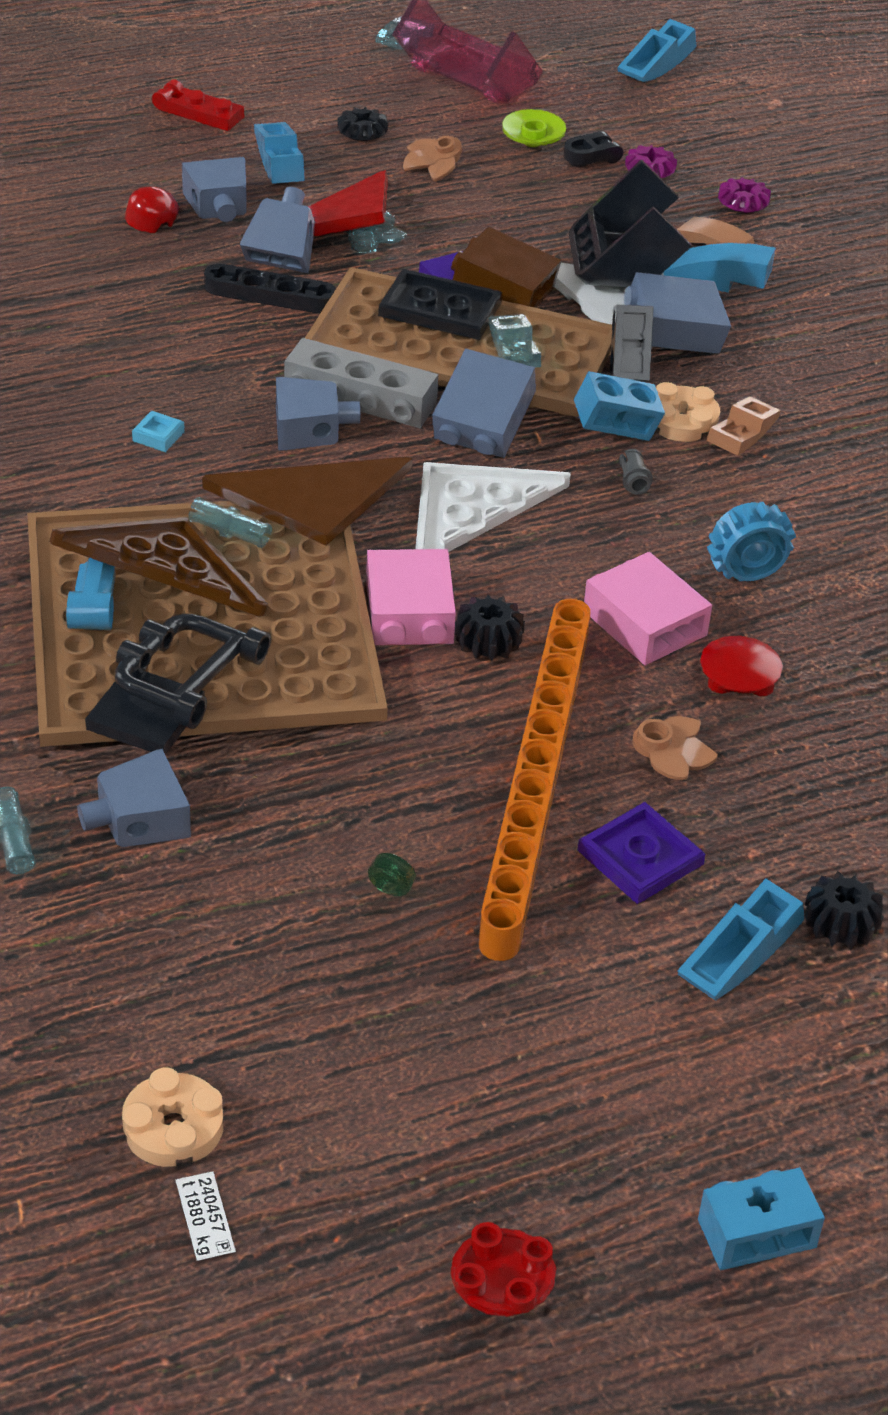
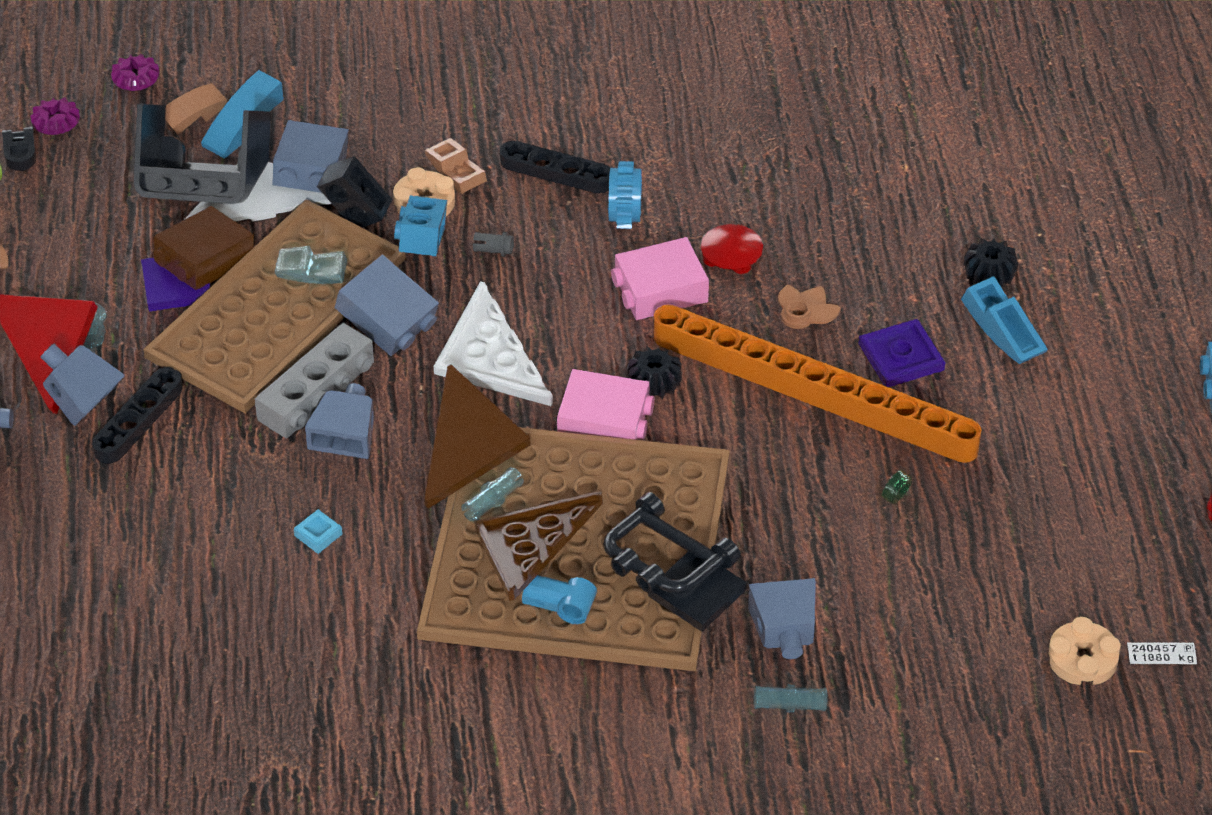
camera: 70 degrees left, 5 degrees up
(440, 304) = (233, 300): black tile -> none
(788, 499) = (514, 158): none -> black beam

